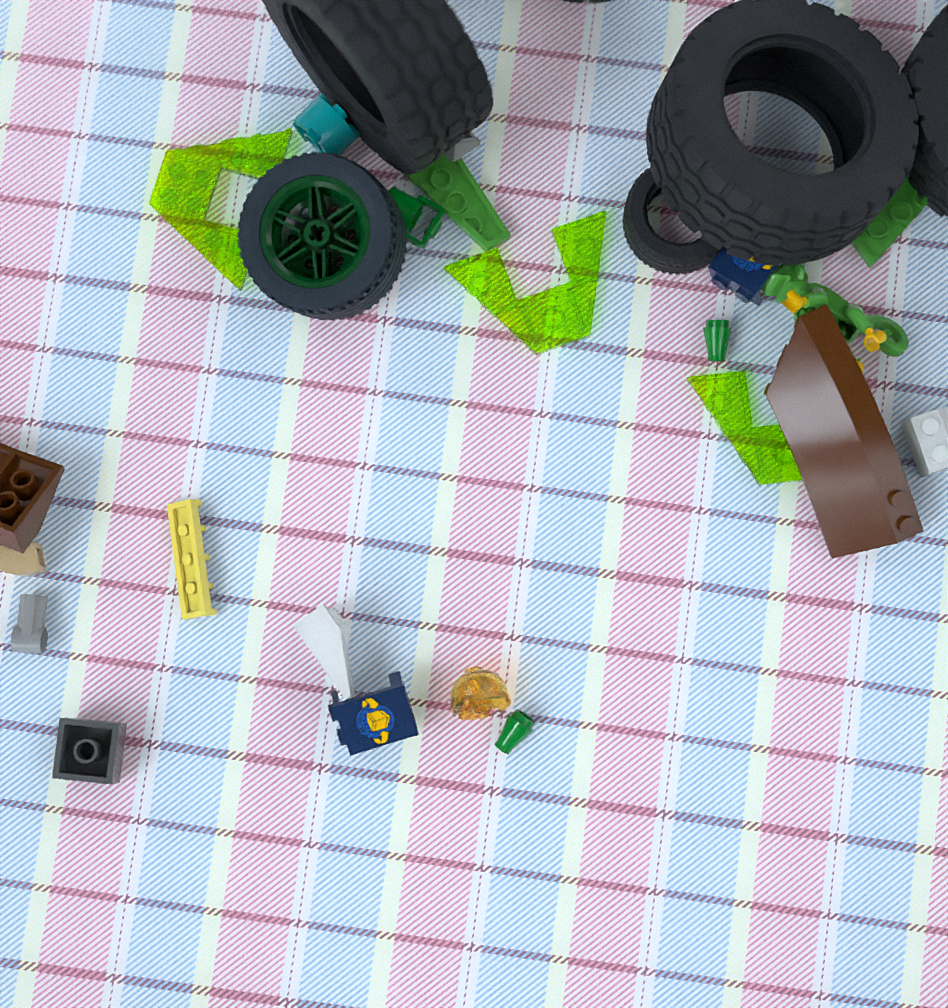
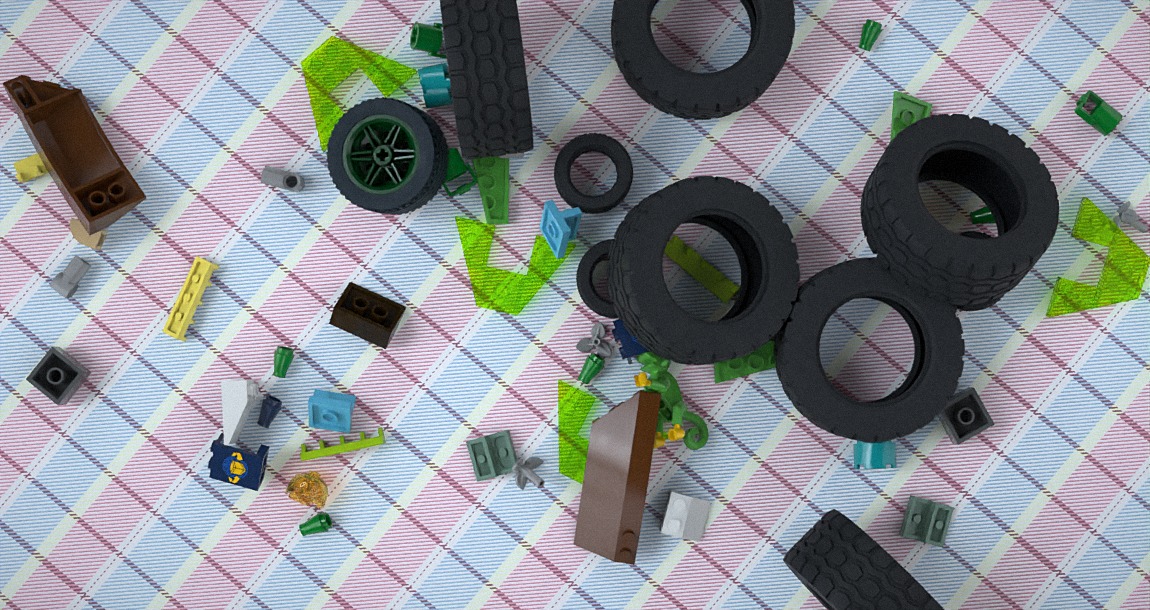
camera: 30 degrees right, 5 degrees up
(210, 351) = (281, 179): none -> light grey piece
(282, 83) = (427, 38): none -> green piece
(349, 562) = (282, 360): none -> green cone
(370, 631) = (269, 410): none -> dark blue cone
(415, 445) = (367, 315): none -> dark brown slope
(446, 584) = (331, 411): none -> medium azure bracket
(486, 618) = (343, 447): none -> lime hinge
(573, 75) = (593, 143): none -> black tyre
(573, 197) = (559, 227): none -> medium azure bracket
(669, 514) = (492, 455): none -> sand green slope
(702, 301) = (602, 348): none -> light grey plant
(719, 504) = (525, 471): none -> light grey plant
(785, 151) = (700, 269): none -> lime hinge

